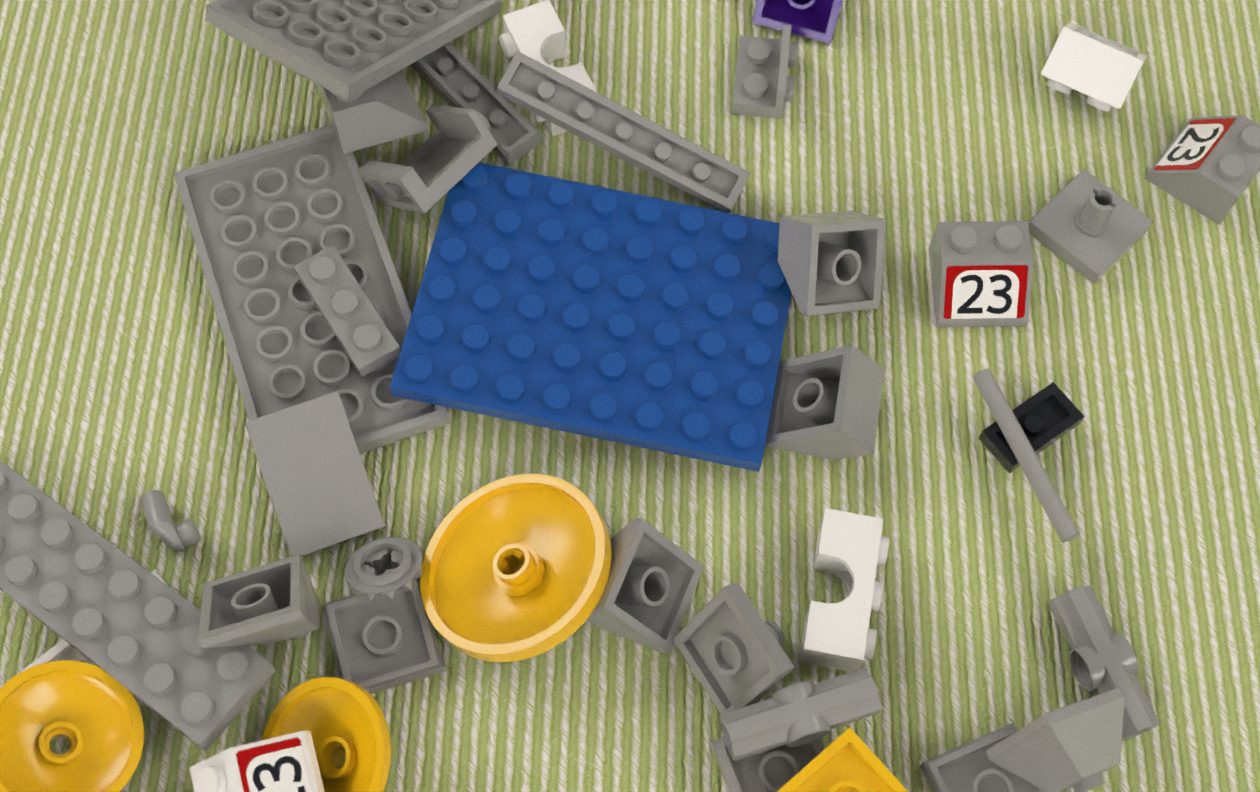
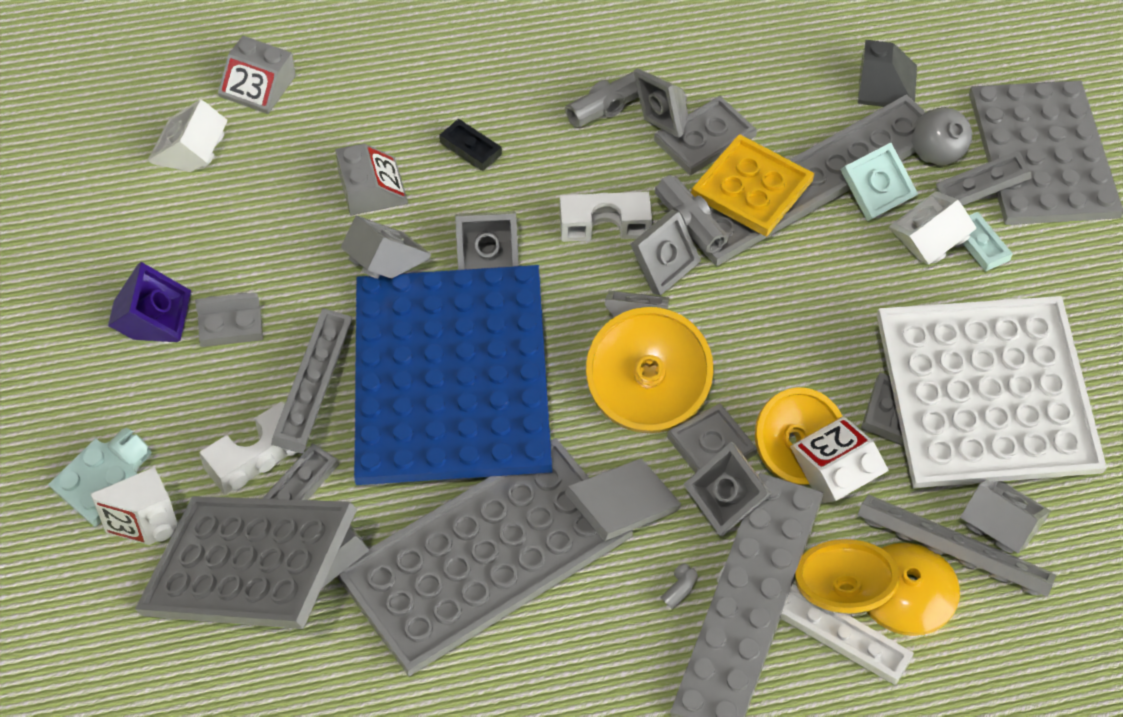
camera: 105 degrees left, 10 degrees down
(347, 310) = (496, 514): light grey plate -> none
(375, 557) = (660, 438): light grey gear -> none
(436, 166) = (369, 485): light grey panel -> none
(1026, 456) = (494, 139): light grey bar -> none
(1089, 226) = (314, 134): light grey tile -> none

